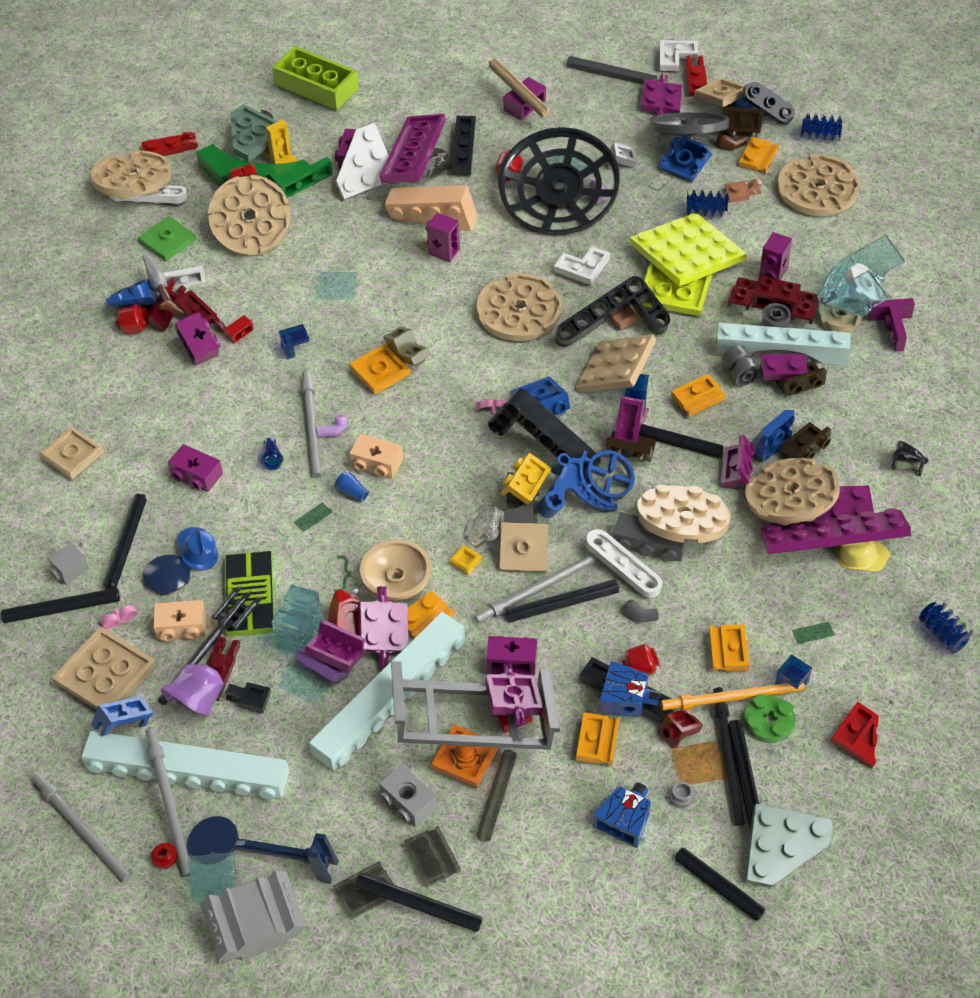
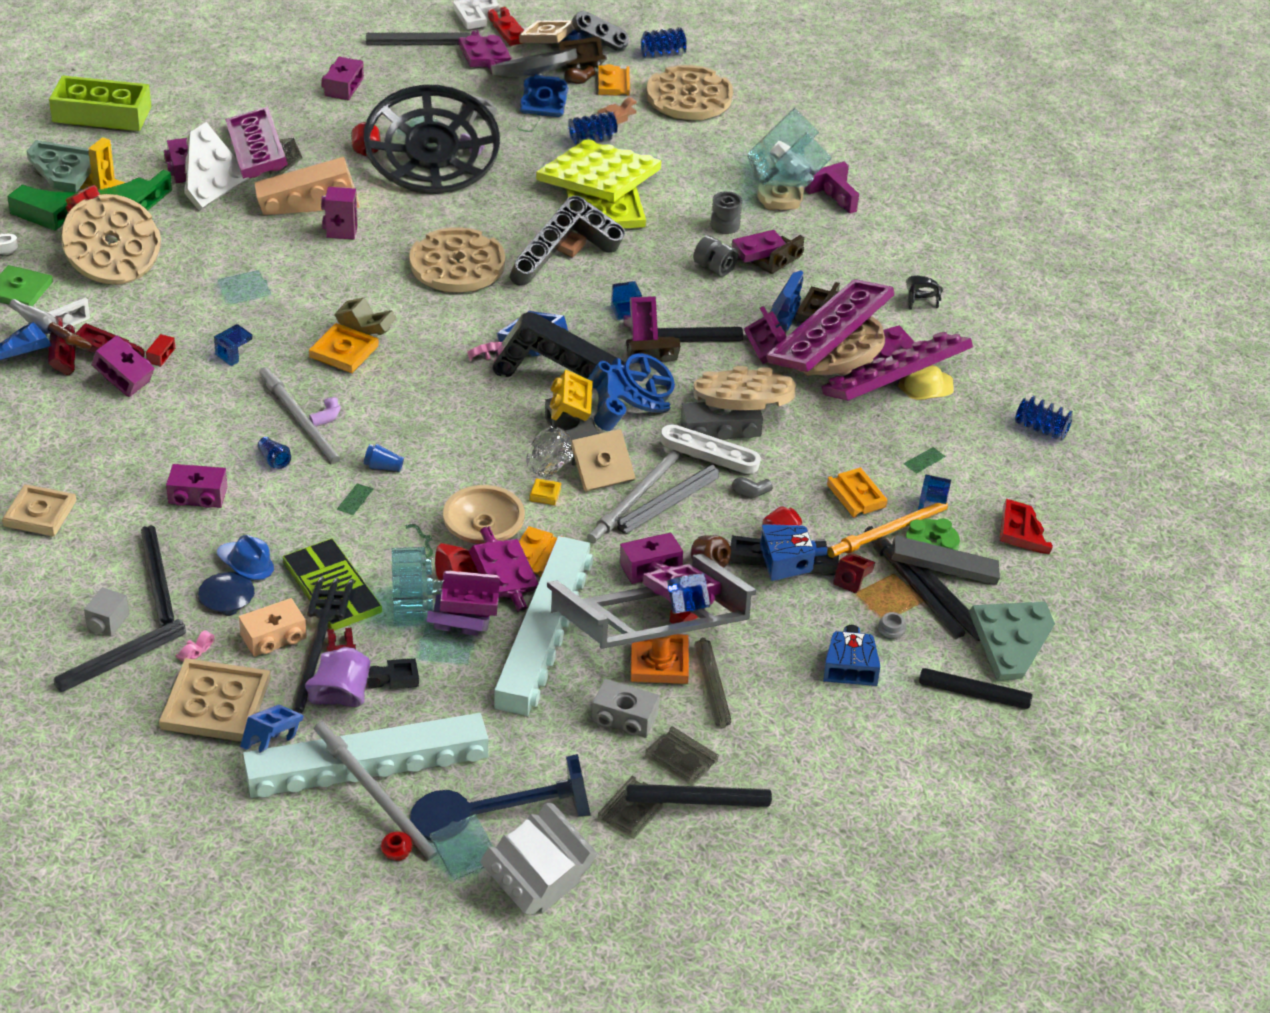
camera: 30 degrees left, 10 degrees down
(52, 795) = (227, 831): light grey bar -> none
(132, 319) = (30, 368): red head -> none
(376, 456) = (392, 424): light nougat brick -> none
(463, 145) = (304, 132): black plate -> none
(501, 711) = (688, 593): none -> clear blue panel
(519, 88) = (337, 66): tan axle -> none
(563, 668) = (713, 547): none -> reddish brown head
(584, 269) = (503, 212): white plate -> none
(597, 739) = (781, 604): light orange plate -> none
(616, 364) = (594, 281): tan plate -> none
(698, 395) = (688, 291): light orange plate -> none
(765, 746) = (945, 560): none -> dark grey tile
(771, 291) = (701, 188): dark red bracket -> none
(775, 256) = (693, 156): magenta brick -> none
(794, 472) = (830, 325): none -> magenta plate
(824, 346) = (785, 219): light aqua arch -> none

